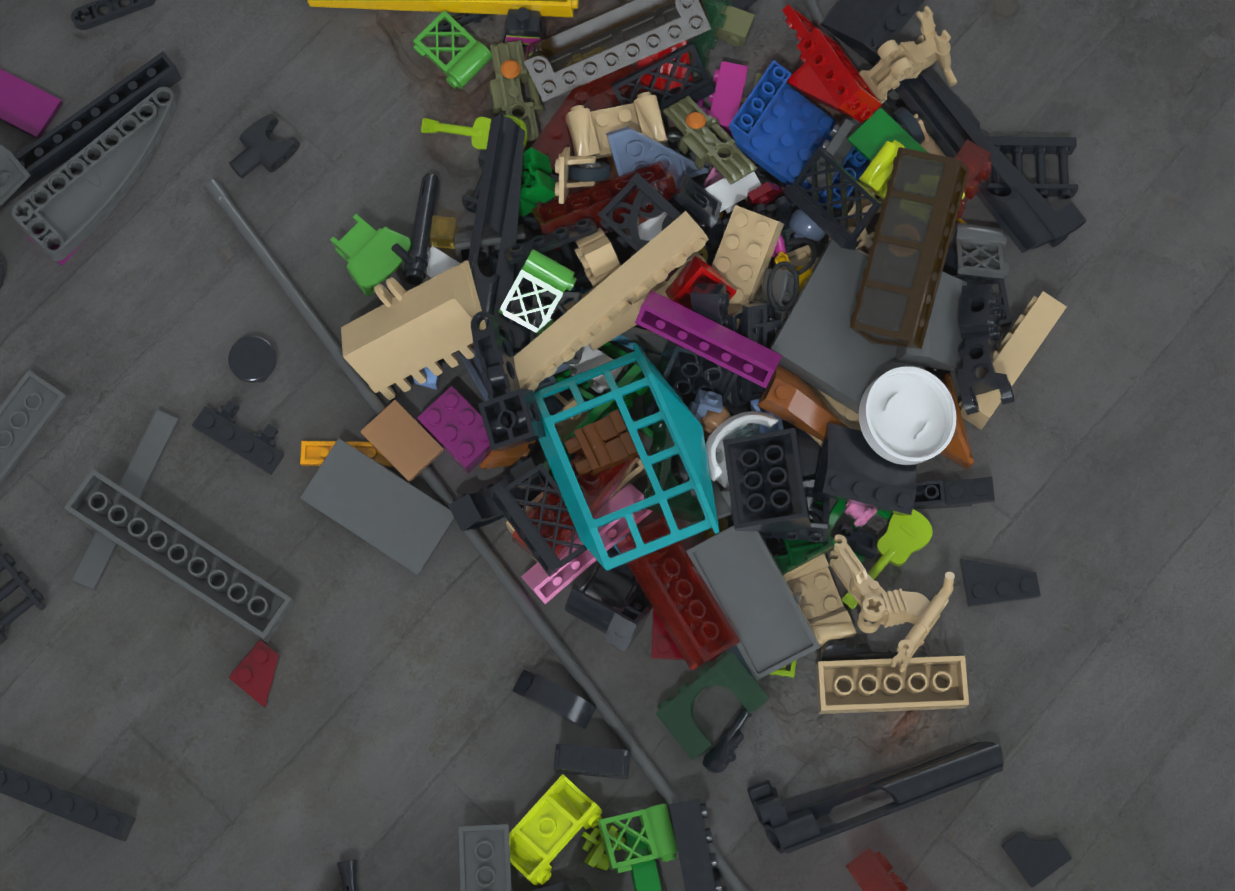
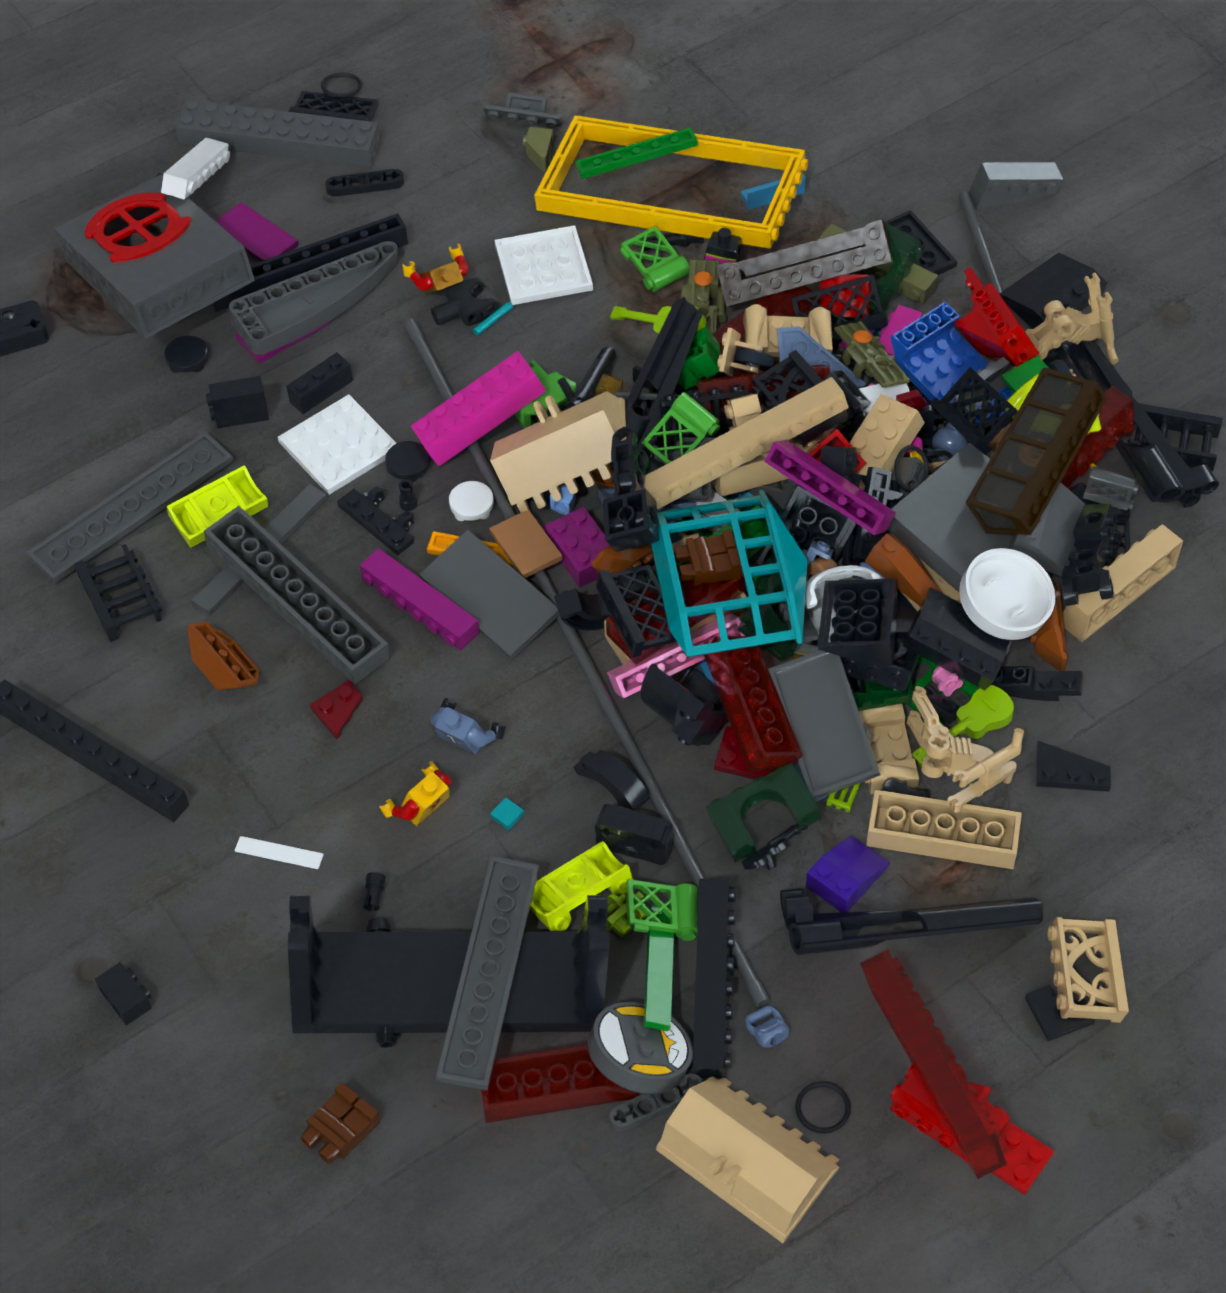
camera: 15 degrees right, 20 degrees down
(53, 329) = (237, 402): none -> black brick
(67, 462) = (212, 502): none -> neon yellow piece
(125, 647) = (220, 658): none -> dark orange wedge
(134, 283) = (319, 383): none -> black brick
(173, 352) = (337, 444): none -> white plate
(230, 120) = (440, 276): none -> torso
(241, 851) = (279, 852): none -> white sticker
(264, 406) = (407, 497): none -> black pin
(297, 158) = (492, 318): none -> teal piece
(307, 528) = (419, 599): none -> magenta brick
(313, 290) = (478, 408): none -> dark pink brick
(331, 395) = (471, 501): none -> white tile
(335, 79) = (543, 265): none -> white plate
(374, 763) = (422, 798): none -> torso
(389, 678) = (463, 730): none -> sand blue torso
(458, 758) = (507, 814): none -> teal tile
(807, 749) = (845, 873): none -> dark purple slope
(1037, 820) = (1110, 961): none -> tan fence

